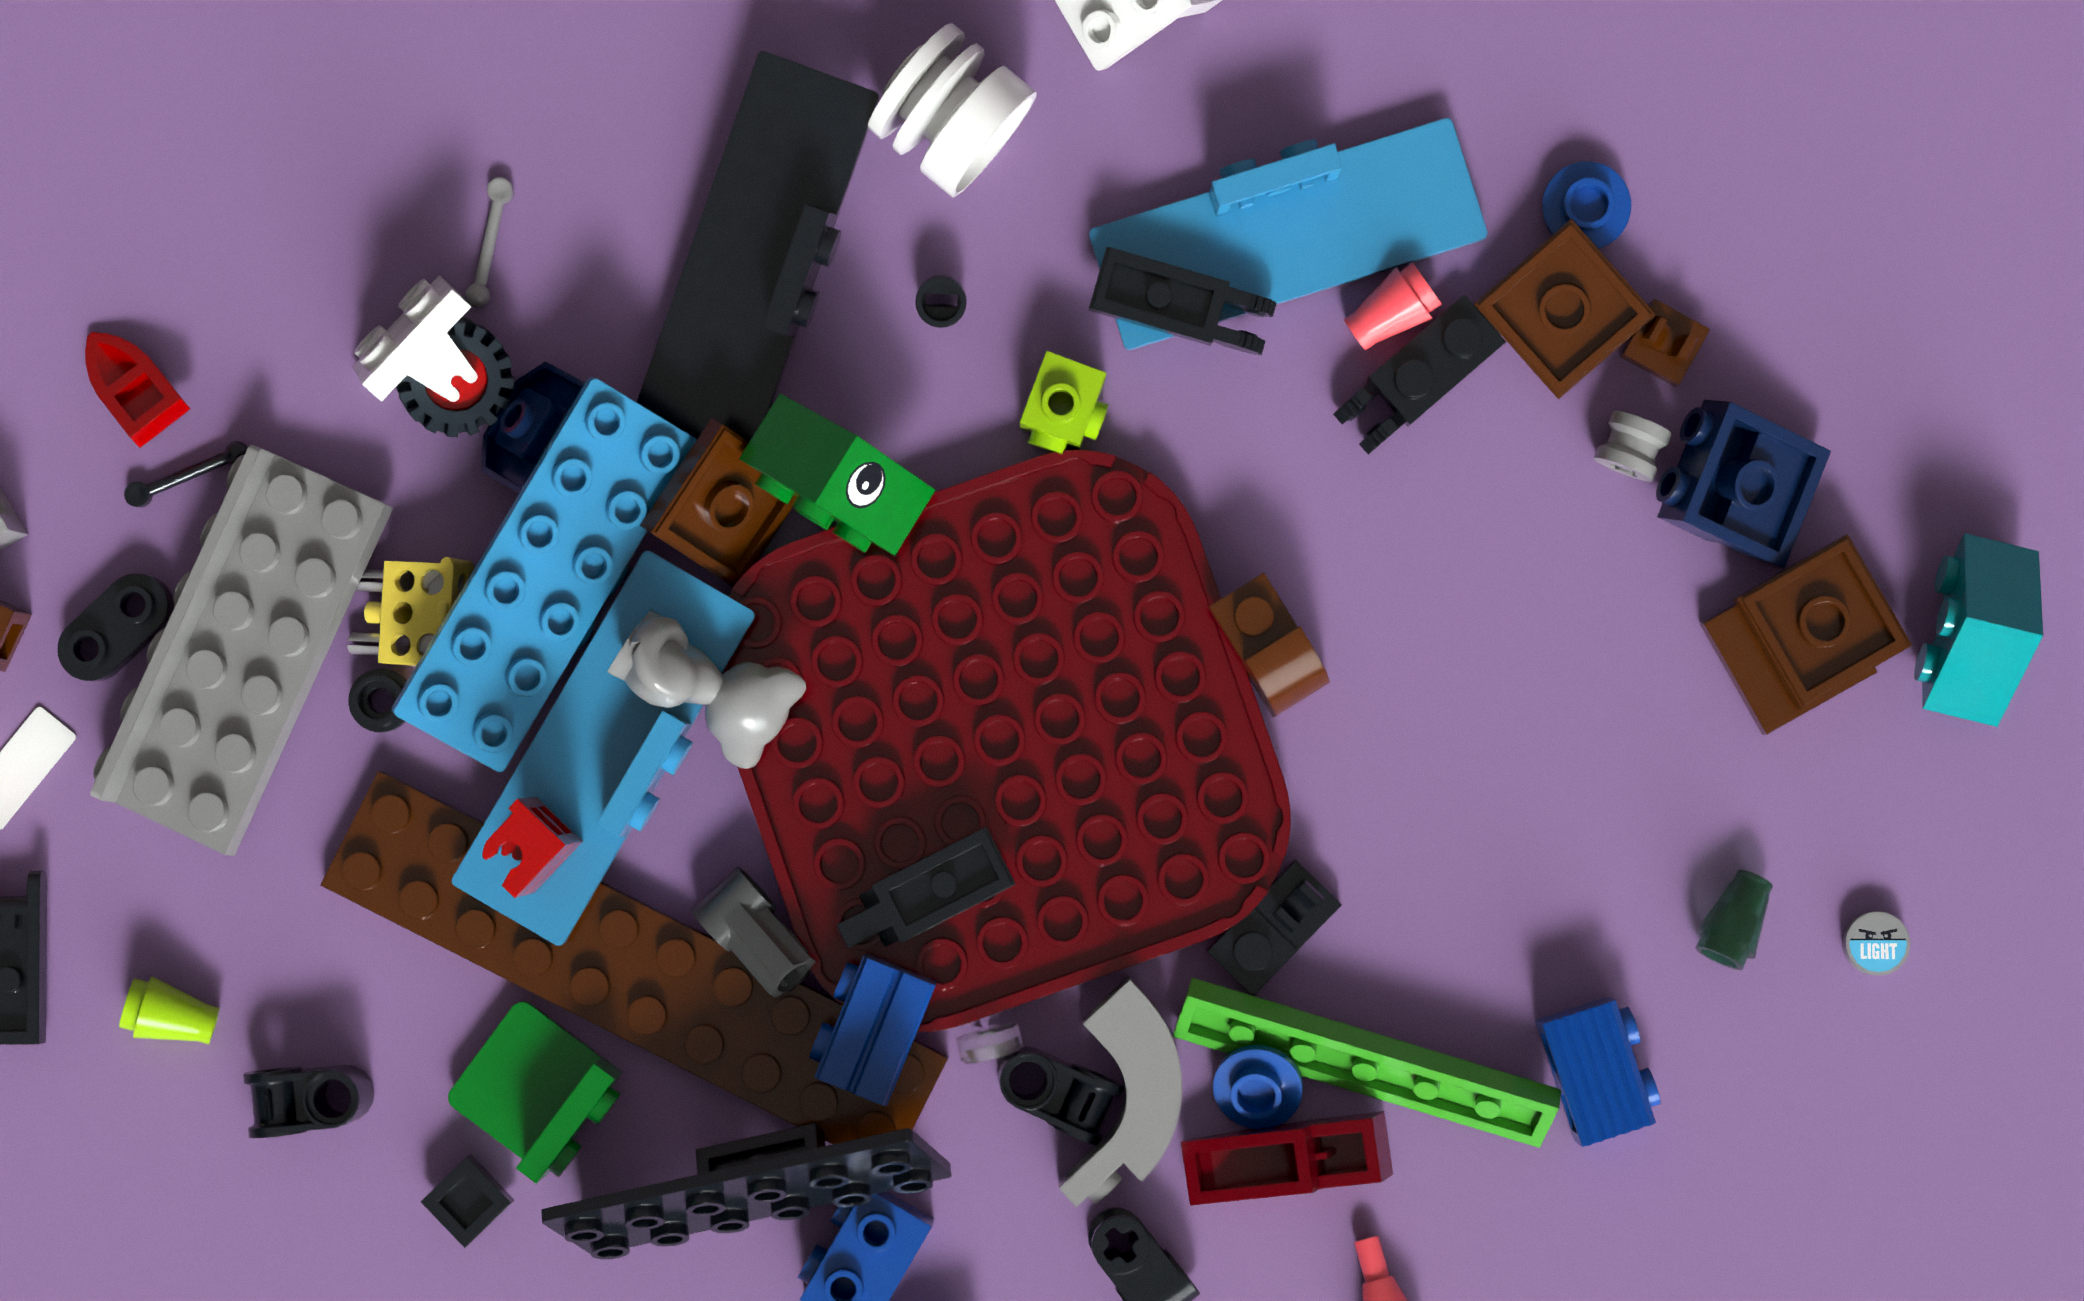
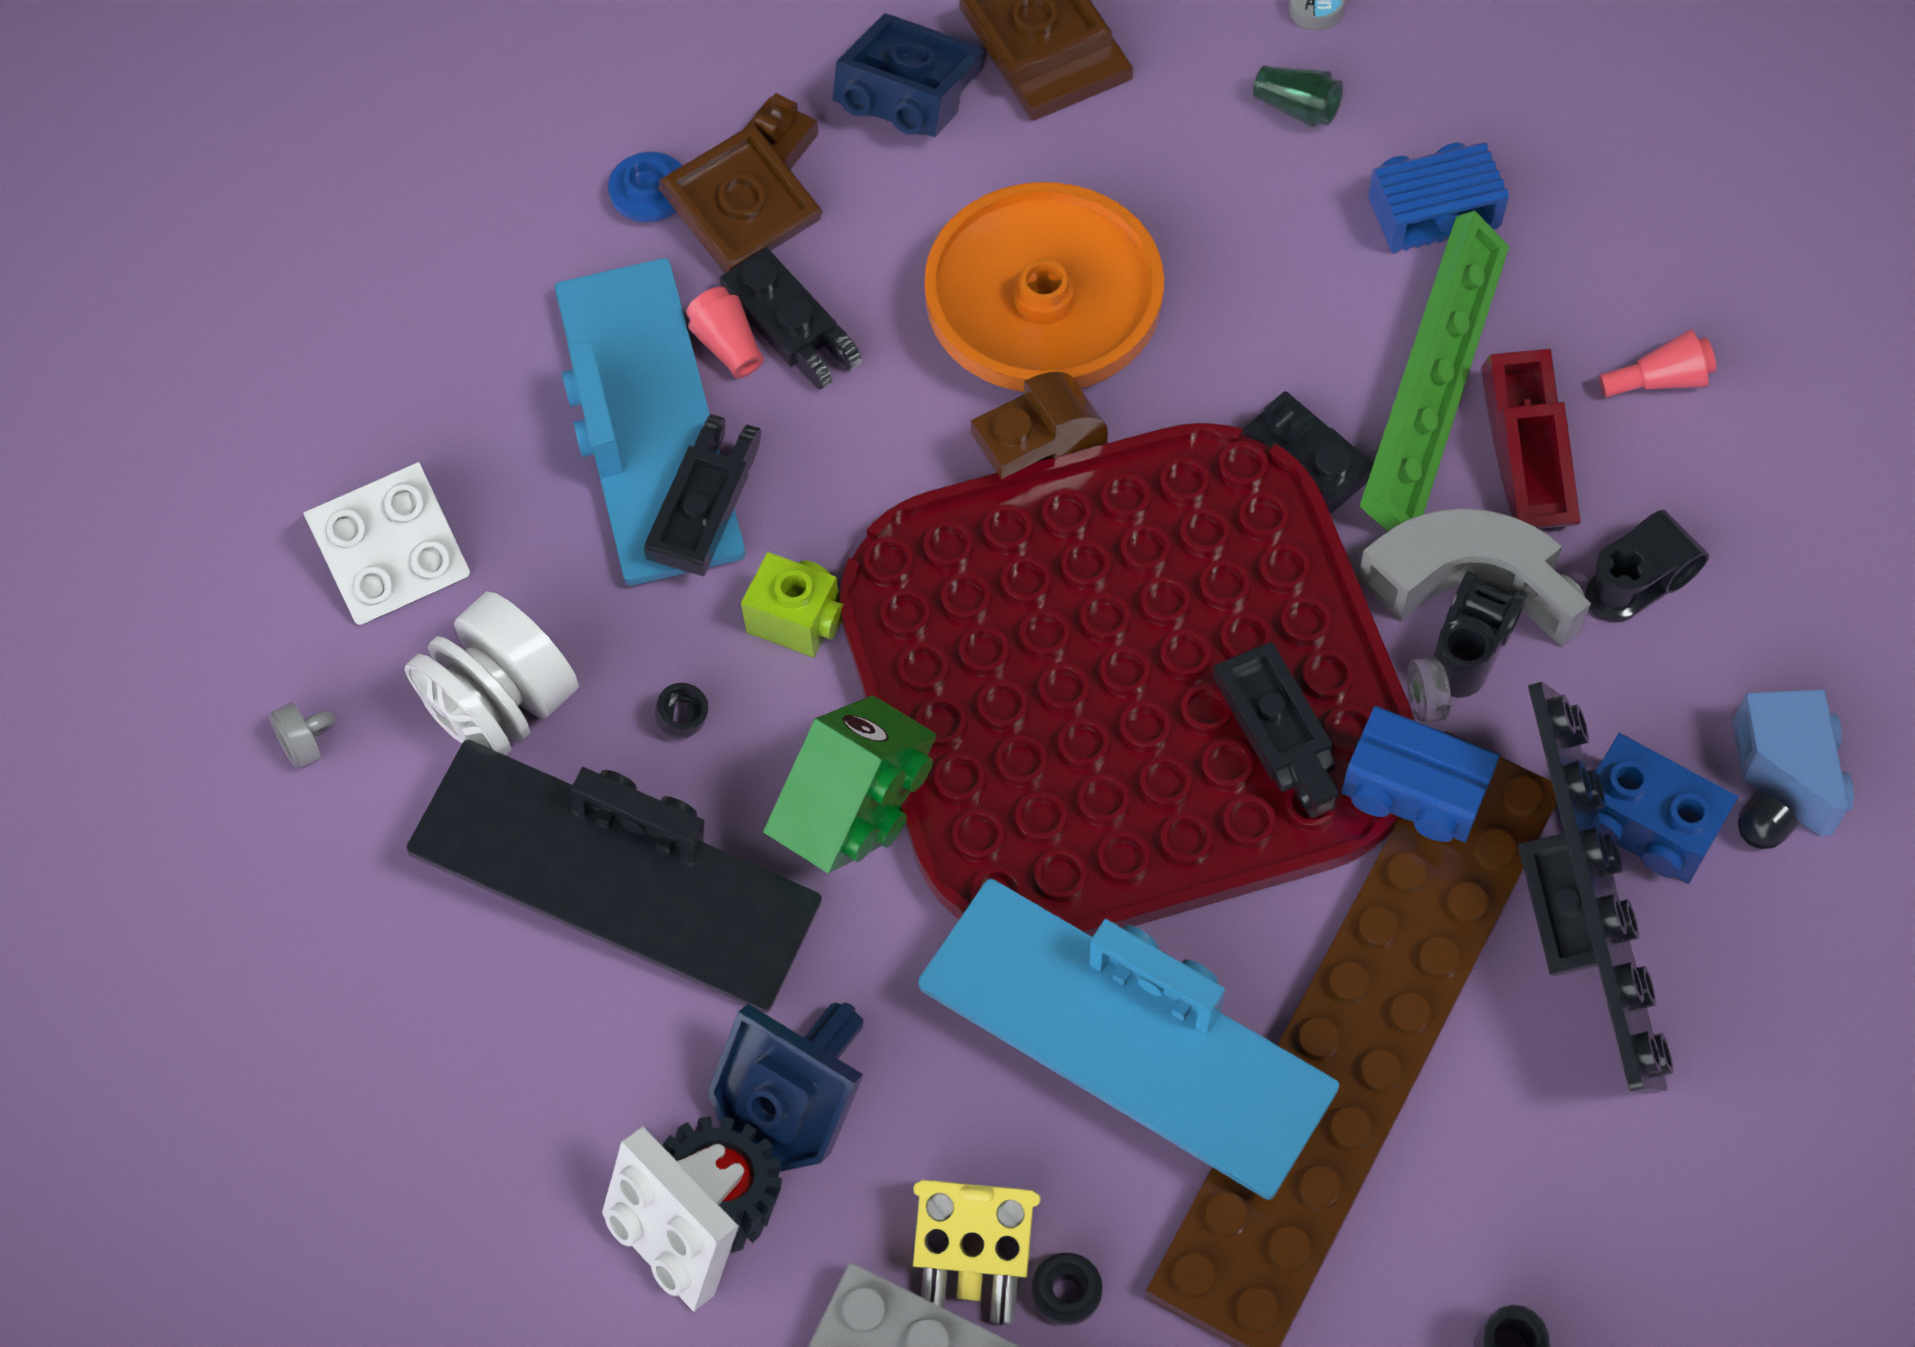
camera: 85 degrees left, 25 degrees down
(467, 1200) = (1619, 1209): black plate -> none
(500, 193) = (519, 1148): light grey hinge -> none
(534, 838) = (1234, 1065): red hinge -> none
(536, 1090) = (1497, 1127): green bracket -> none
(543, 576) = (943, 1076): dark azure bracket -> none
(715, 508) = (873, 912): reddish brown tile -> none
(742, 705) = (1081, 890): light grey animal -> none
(744, 921) = (1308, 914): dark grey piece -> none
(1257, 1086) = (1462, 464): blue piece -> none
(1511, 633) = (1044, 285): none -> orange dish
(1632, 446) = (869, 153): light grey wheel -> none

